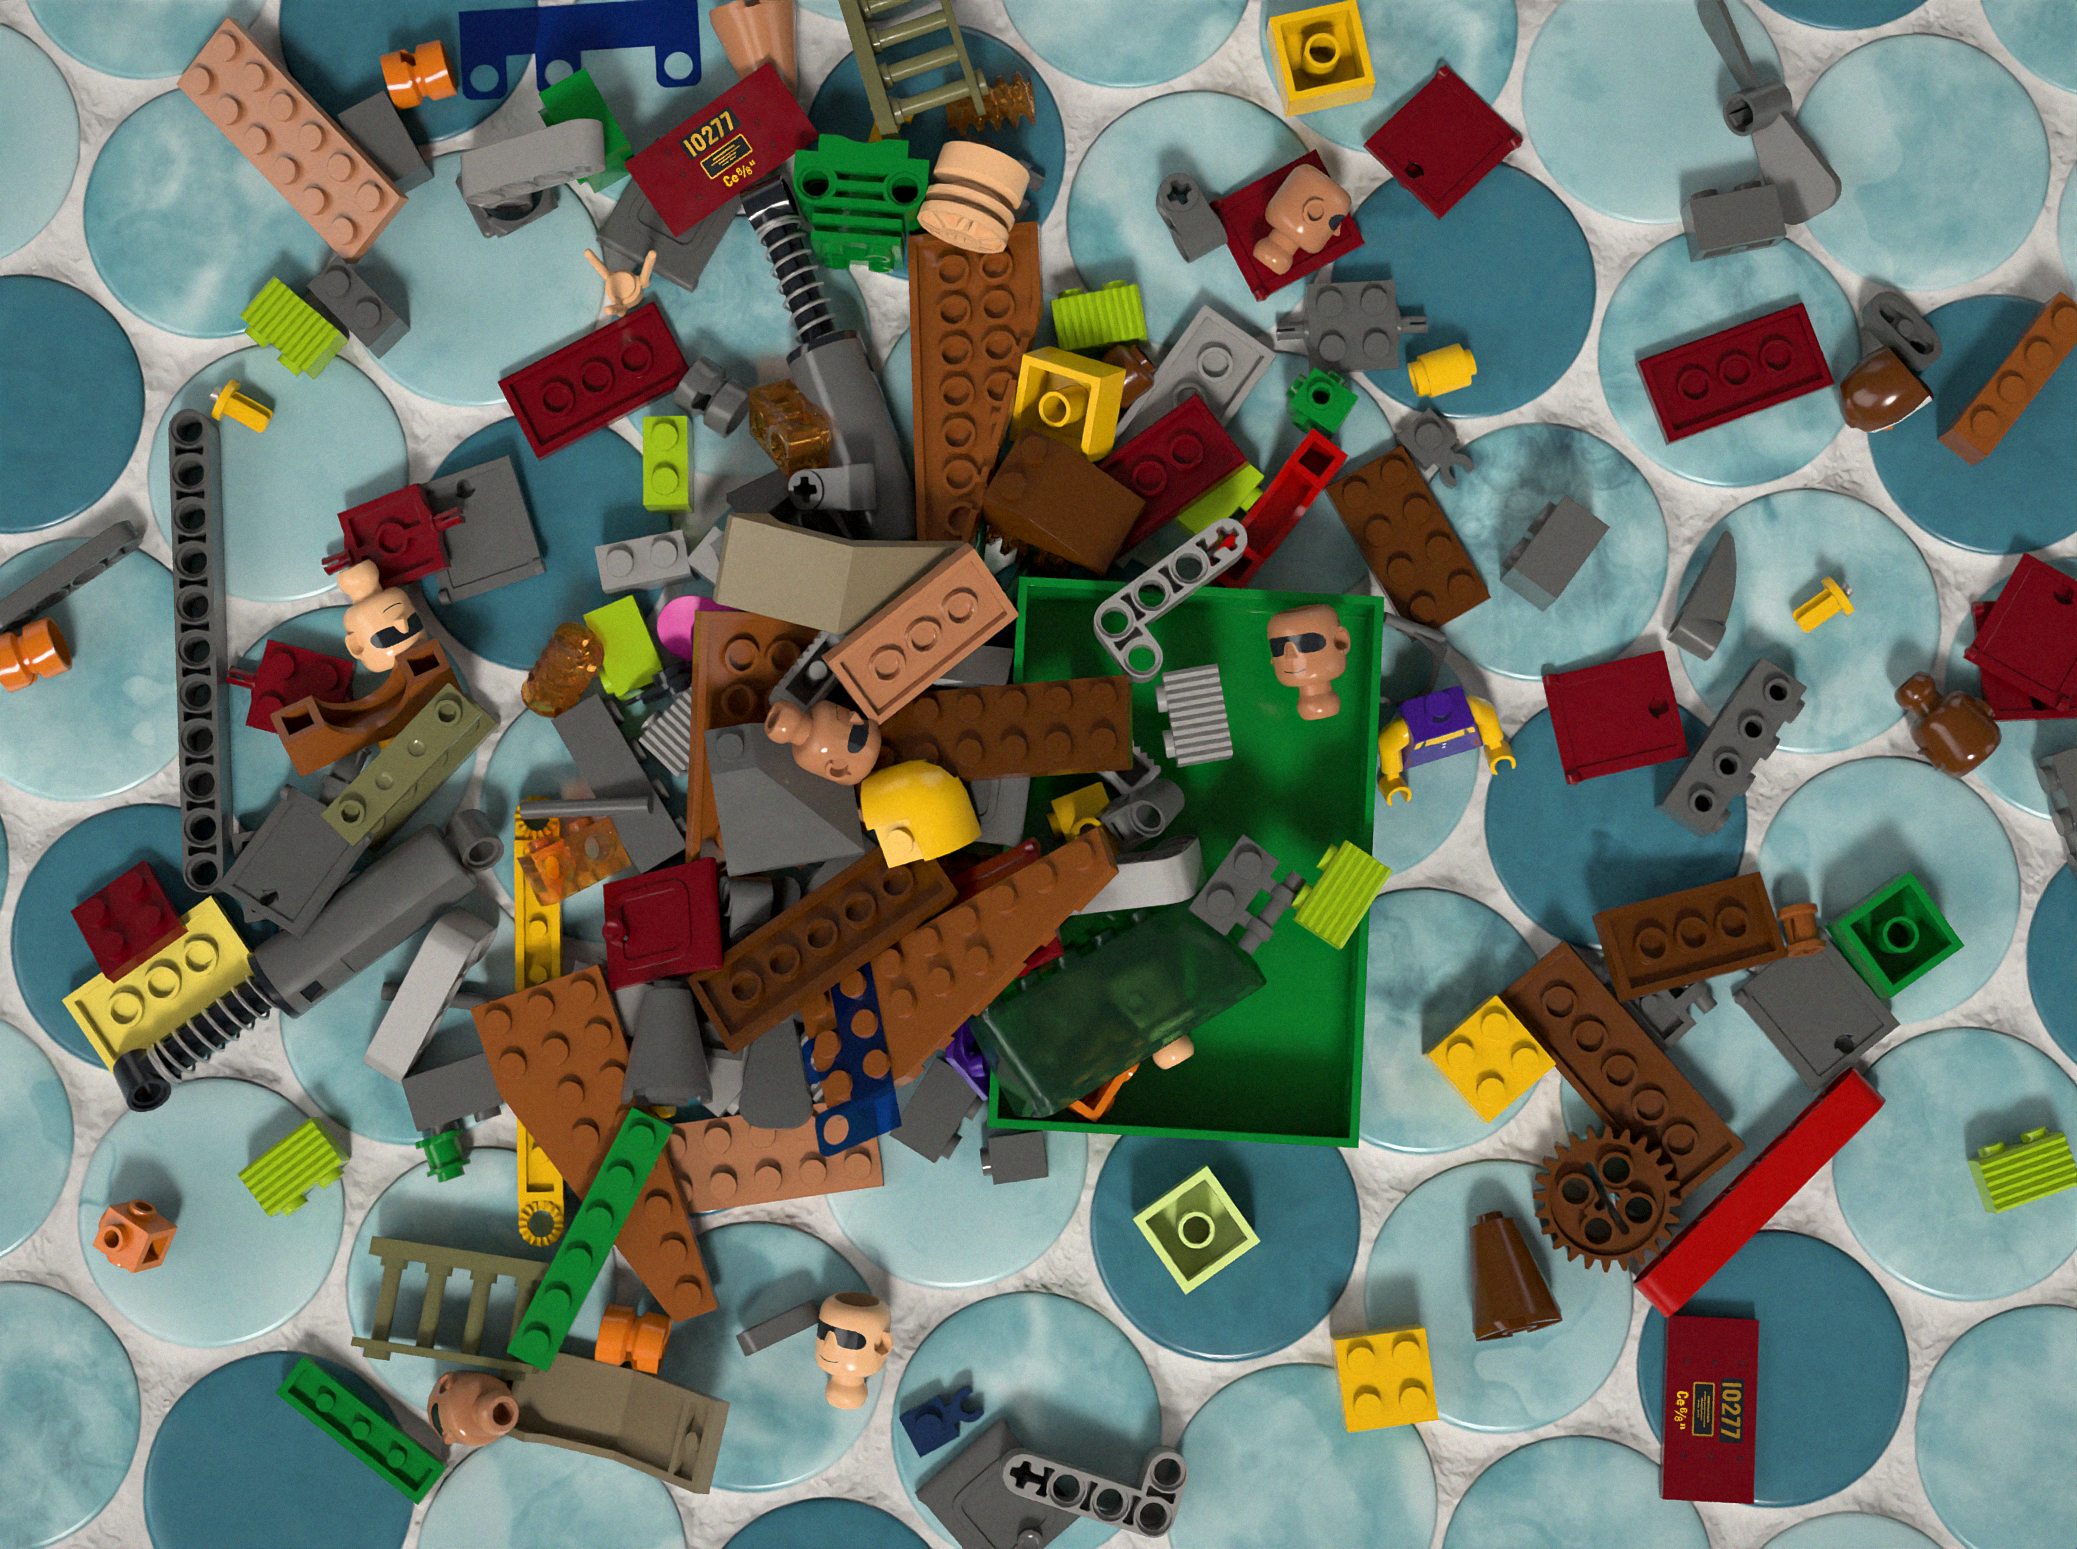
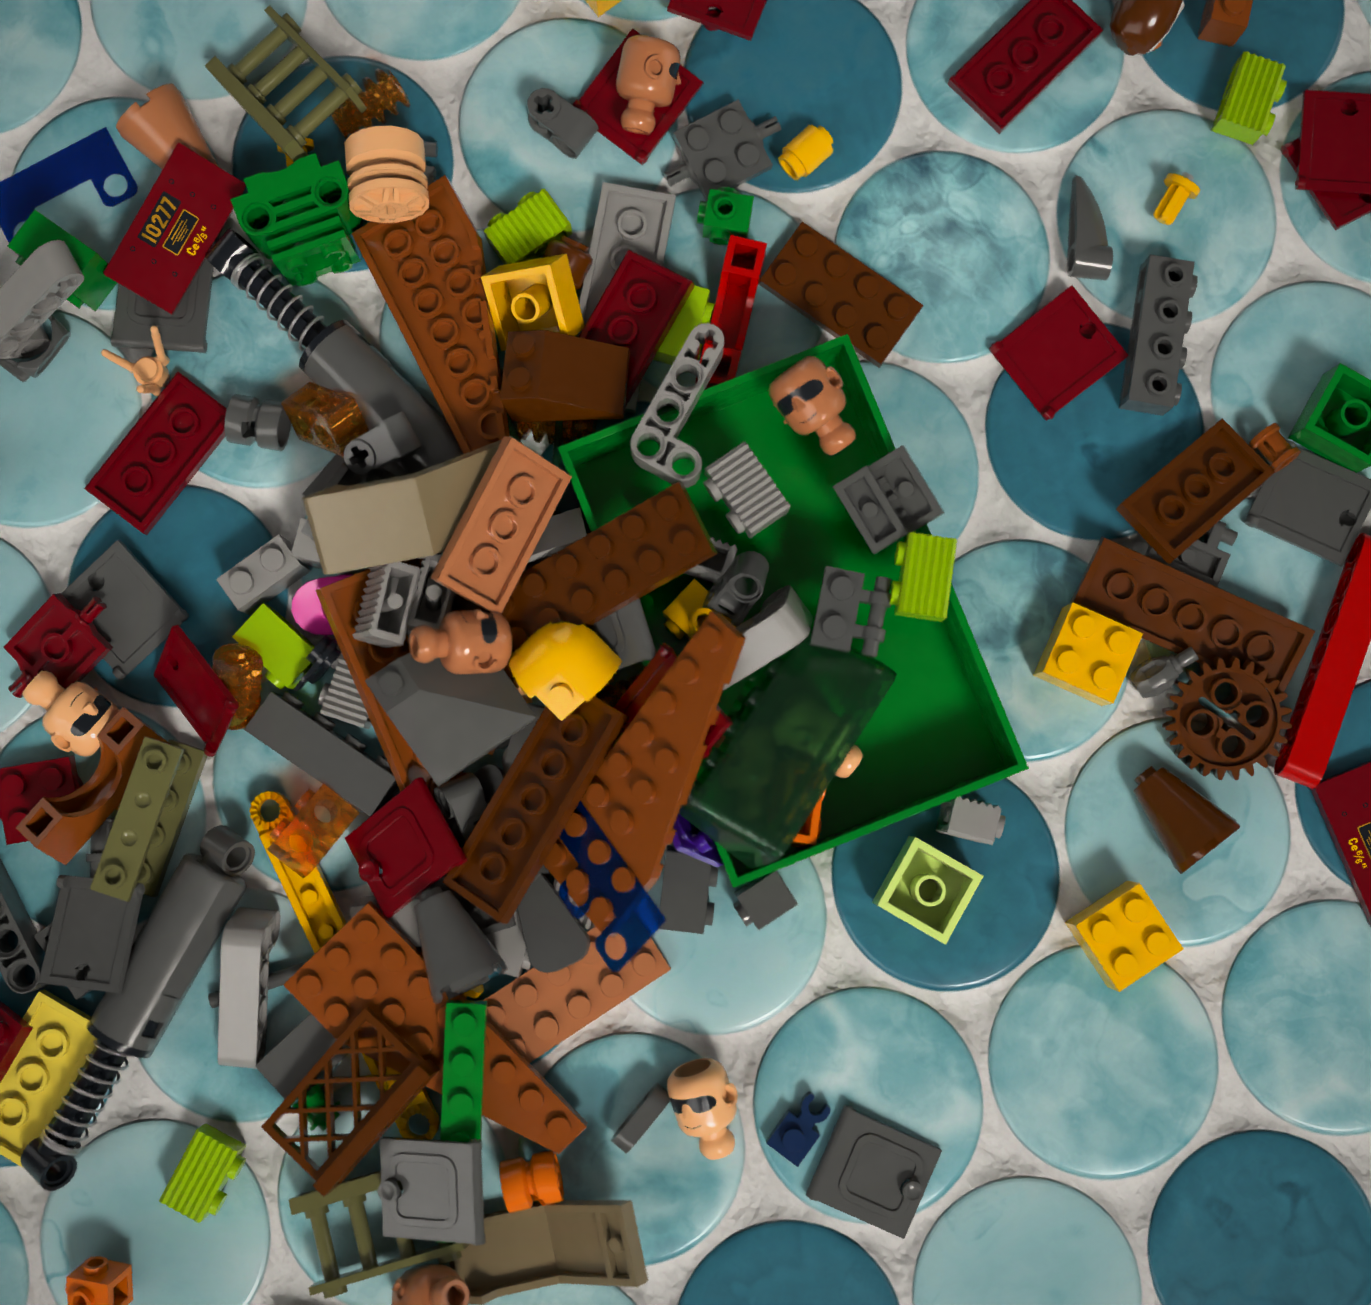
camera: 30 degrees left, 0 degrees up
(501, 1197) = (374, 1123): none -> reddish brown fence
(519, 655) = (196, 689): none -> dark red container
(535, 1298) = (439, 1190): none -> dark grey container
(586, 807) = (303, 784): dark grey bar -> none
(668, 465) = (246, 490): lime brick -> none
(763, 661) = (387, 604): none -> light grey brick
(1091, 1483) = (940, 1123): light grey beam -> none
(1276, 1176) = (971, 820): none -> light grey brick
(1343, 794) = (888, 499): none -> dark grey slope
(1430, 443) = (823, 211): dark grey plate -> none
(1431, 638) = (903, 365): dark grey helmet -> none
(1436, 729) = (935, 417): torso -> none
(1551, 558) = (956, 247): dark grey brick -> none
(1559, 1115) = (1161, 672): none -> dark grey piece
(1949, 728) = (1314, 245): reddish brown piece -> none
(1958, 534) = (1249, 98): none -> lime brick

